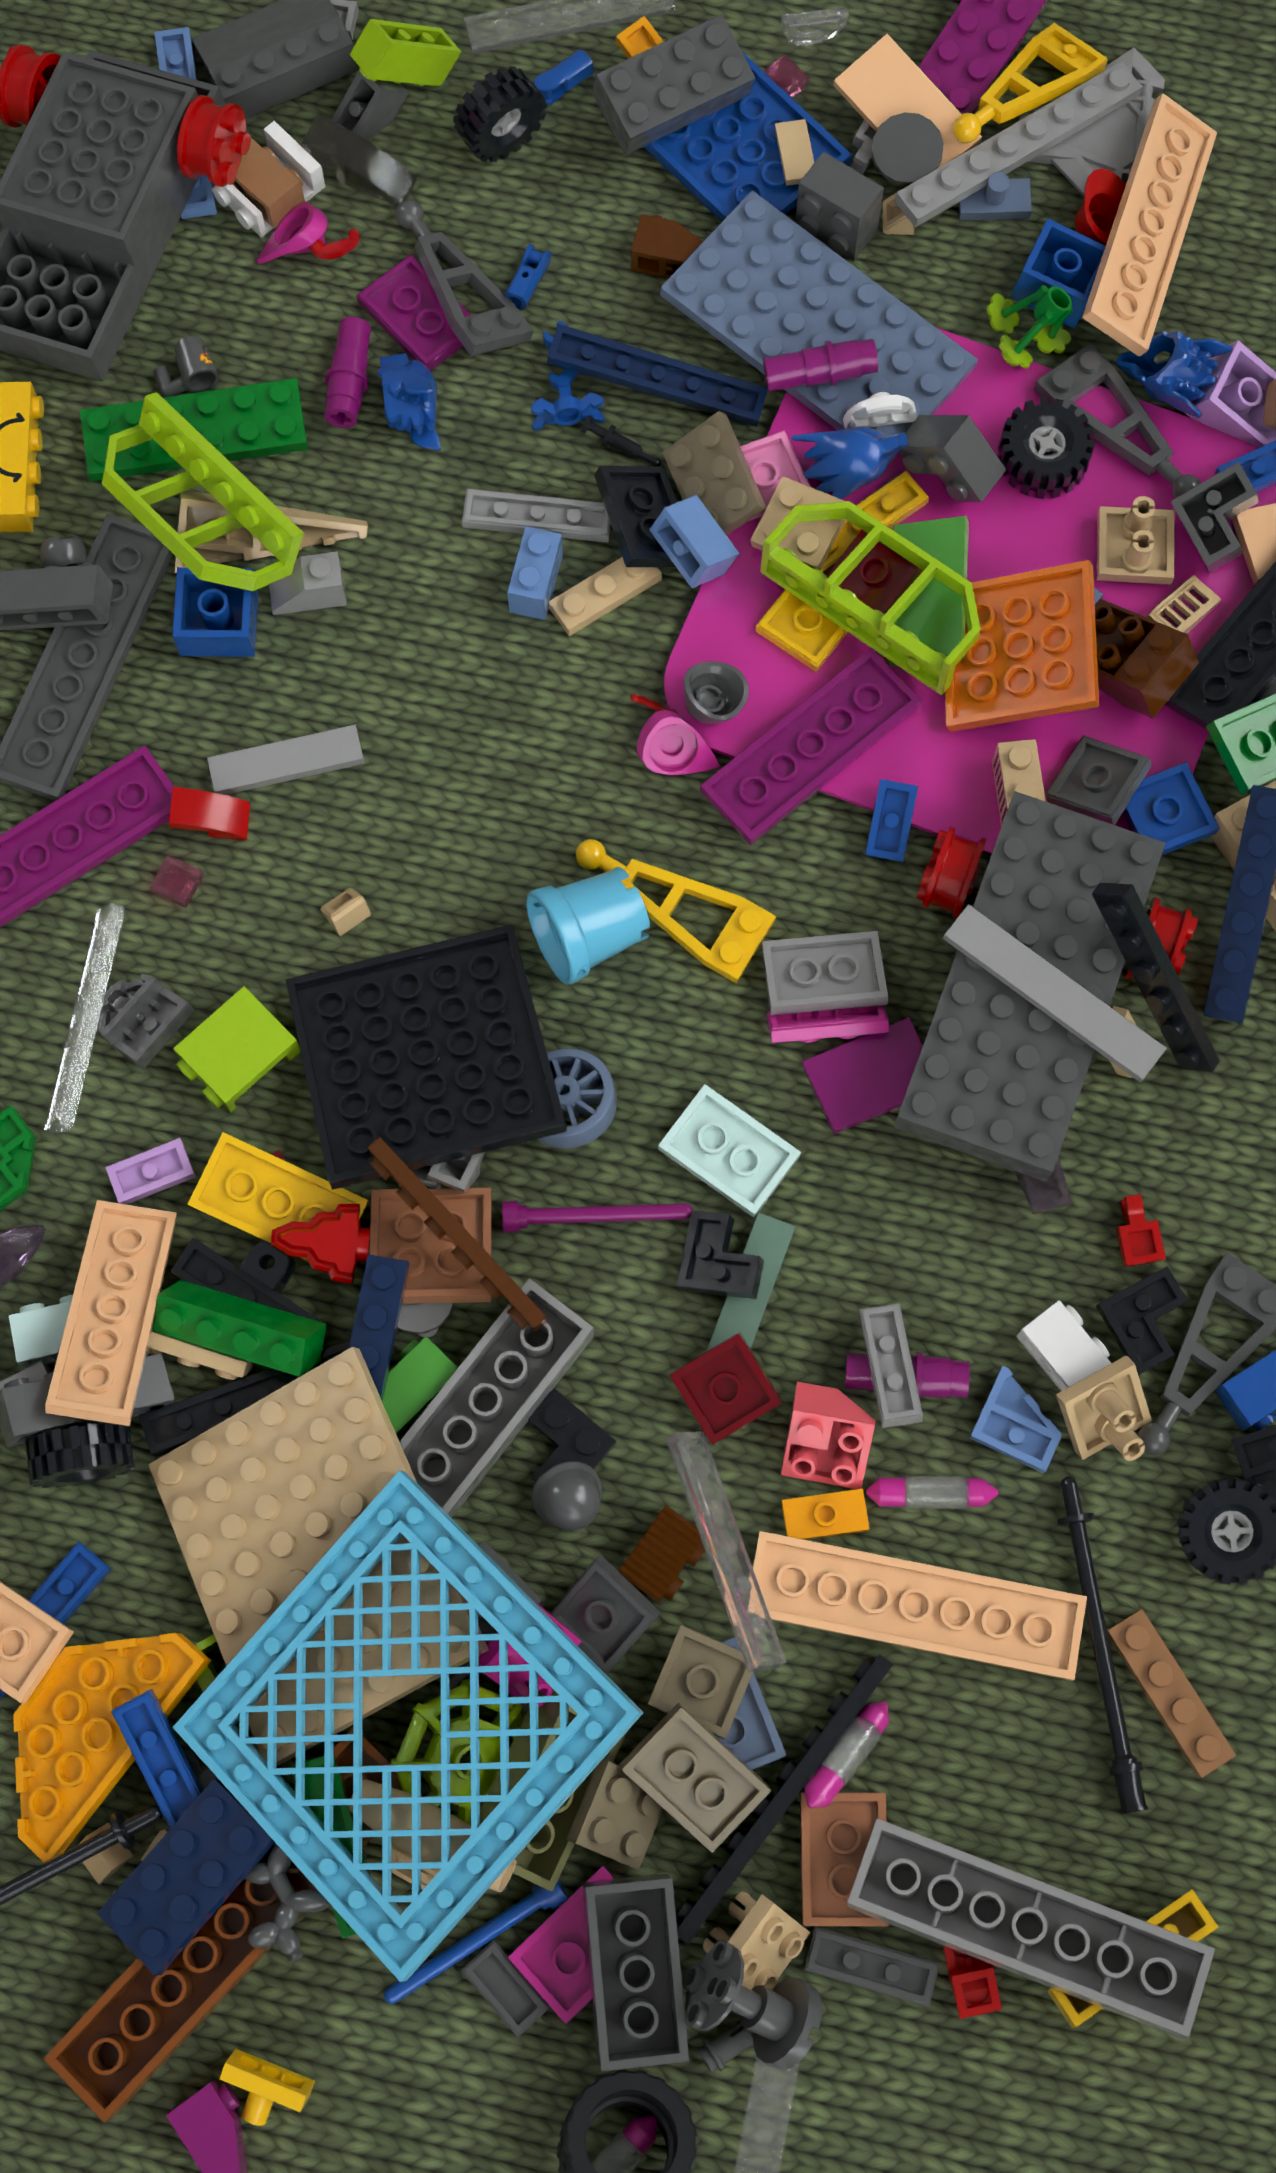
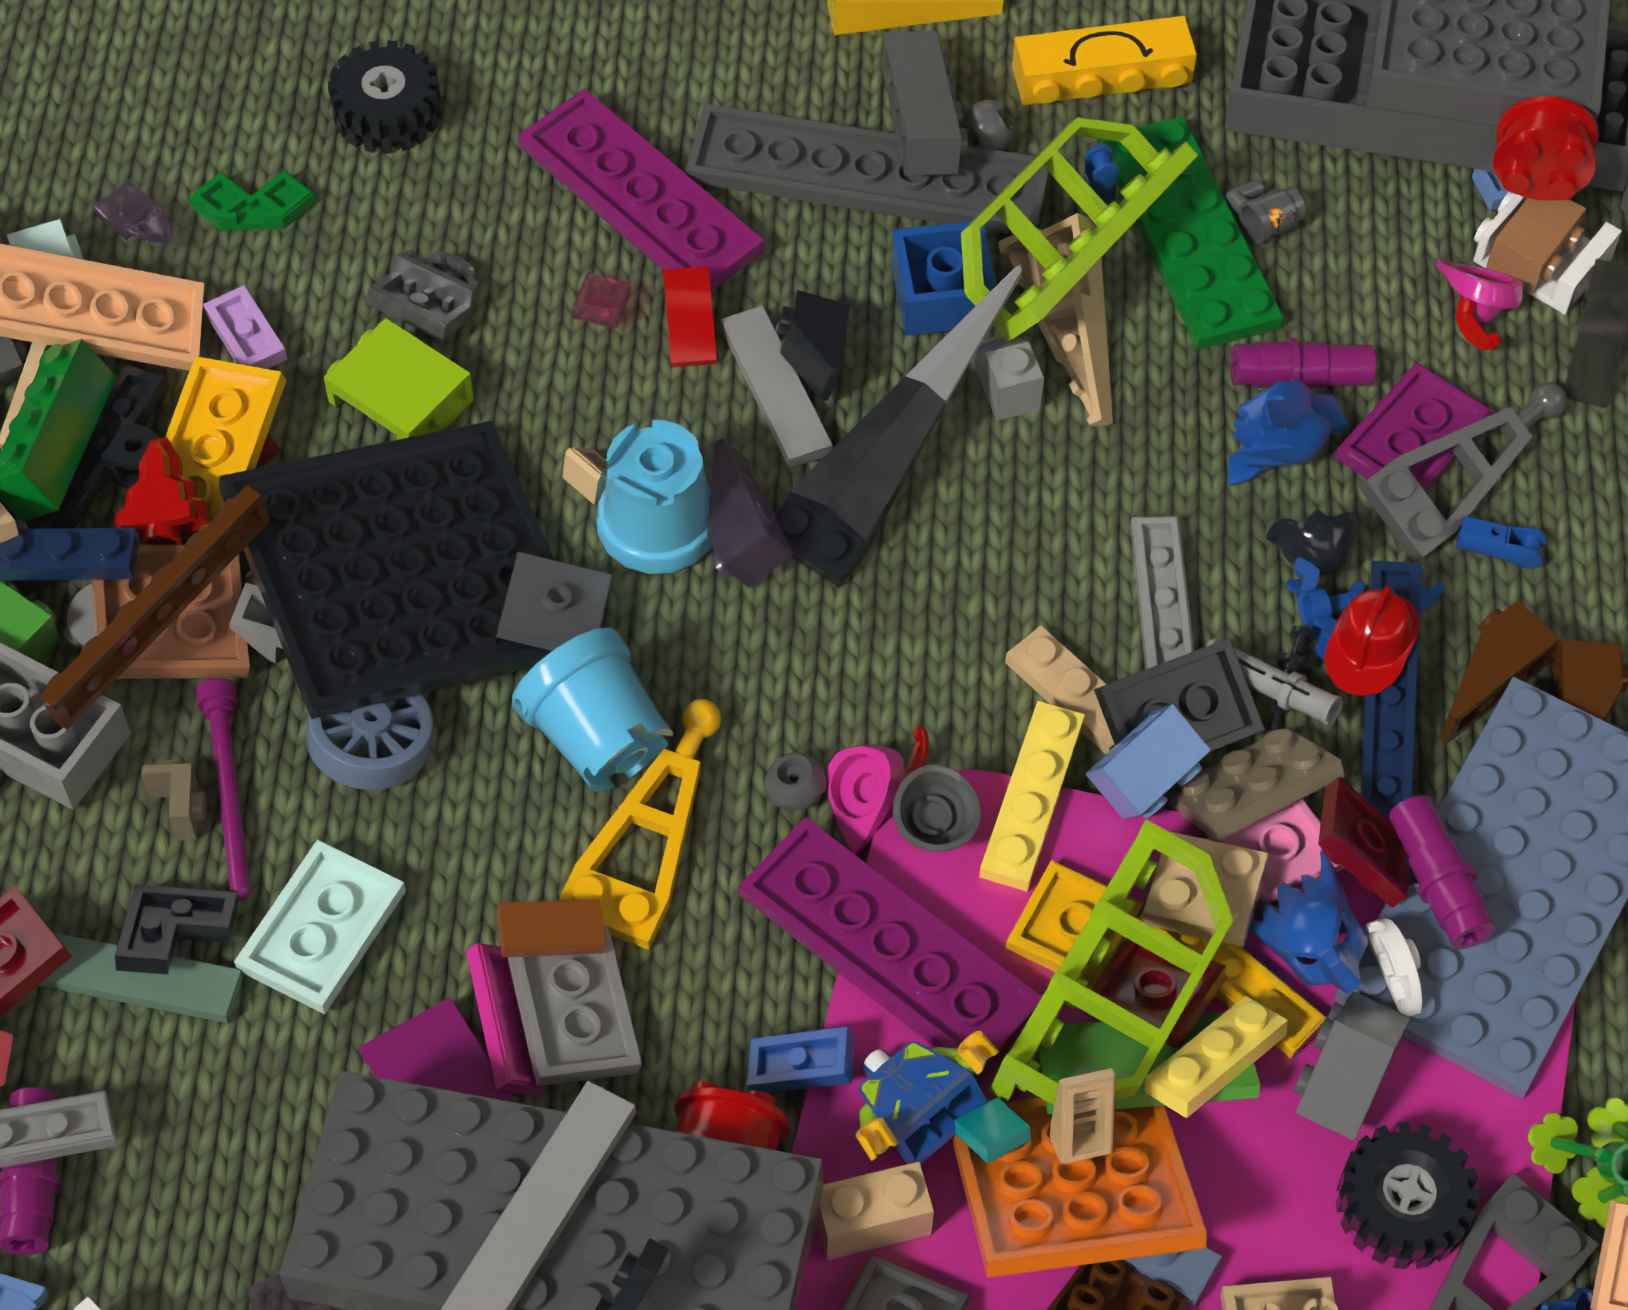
camera: 80 degrees right, 15 degrees down
(84, 1019) = (420, 240): clear tile -> none
(142, 473) = (1101, 172): none -> blue bar
(259, 718) = (814, 339): none -> black slope
(396, 858) = (655, 499): none -> medium azure piece
(409, 715) = (851, 489): none -> black plate
(422, 797) = (741, 520): none -> clear purple slope
(480, 945) = (551, 602): none -> dark grey plate
(518, 393) = (1317, 539): none -> black hair
(535, 573) = (1074, 600): medium blue brick -> none
(606, 1244) = (186, 802): none -> dark tan bracket
(615, 373) = (1371, 642): none -> red piece
(628, 450) = (1288, 689): none -> light grey pin
(636, 302) = (1508, 647): none -> reddish brown slope
(655, 807) = (798, 794): none -> dark grey plate
(697, 630) = (1032, 796): none -> light yellow plate
(768, 976) = (551, 928): none -> dark orange tile
(784, 411) = (1363, 842): none -> dark red plate
(938, 536) = (1215, 1056): none -> light yellow plate
(943, 738) = (920, 1095): none -> blue torso
(977, 693) = (992, 1130): none -> teal tile
(994, 625) = (1084, 1116): none -> tan slope

